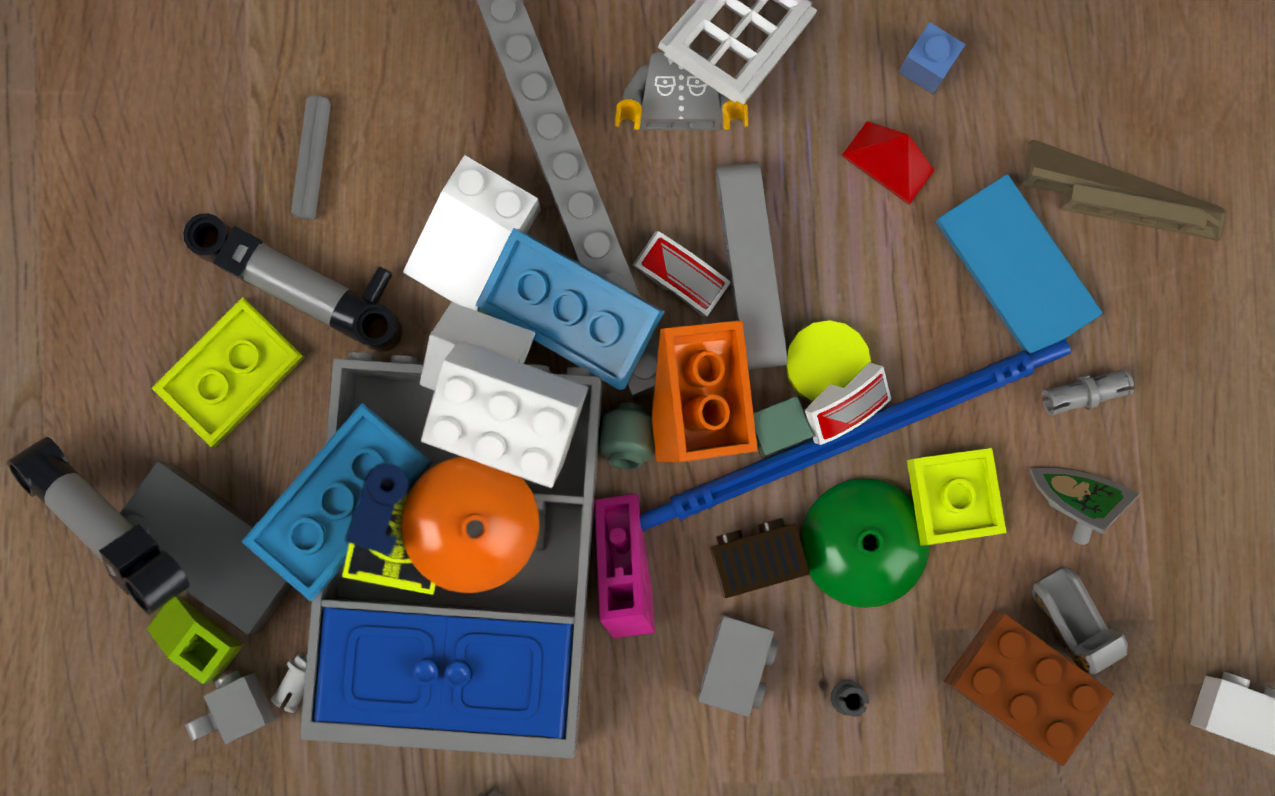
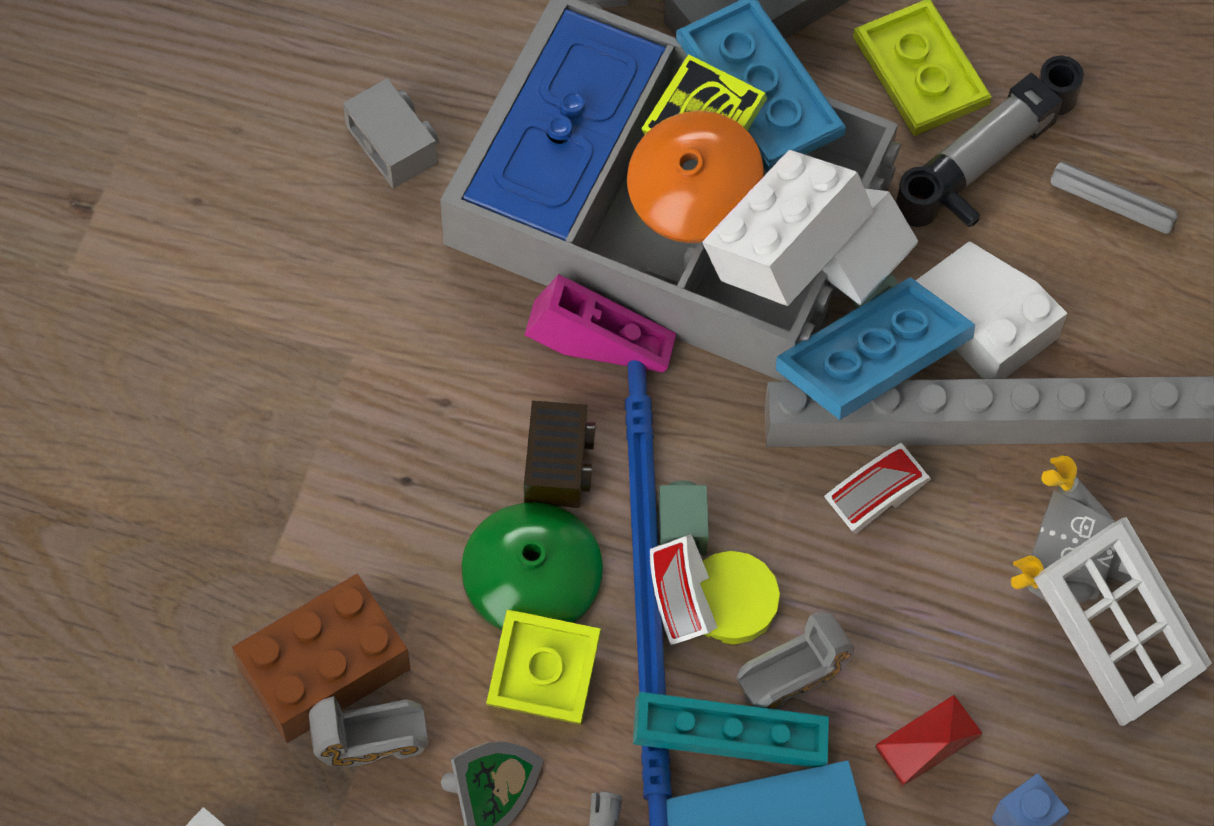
camera: 110 degrees right, 20 degrees down
(381, 490) = (739, 89): dark blue leg -> none
(627, 436) = (727, 377): sand green head -> none
(702, 393) = (745, 443): orange slope -> none
(736, 666) = (461, 397): light grey brick -> none
(751, 263) = (863, 554): light grey beam -> none
(842, 690) = (384, 489): dark grey pin -> none
(877, 286) = (797, 664): none -> light grey animal
(957, 320) = (730, 730): none -> teal plate

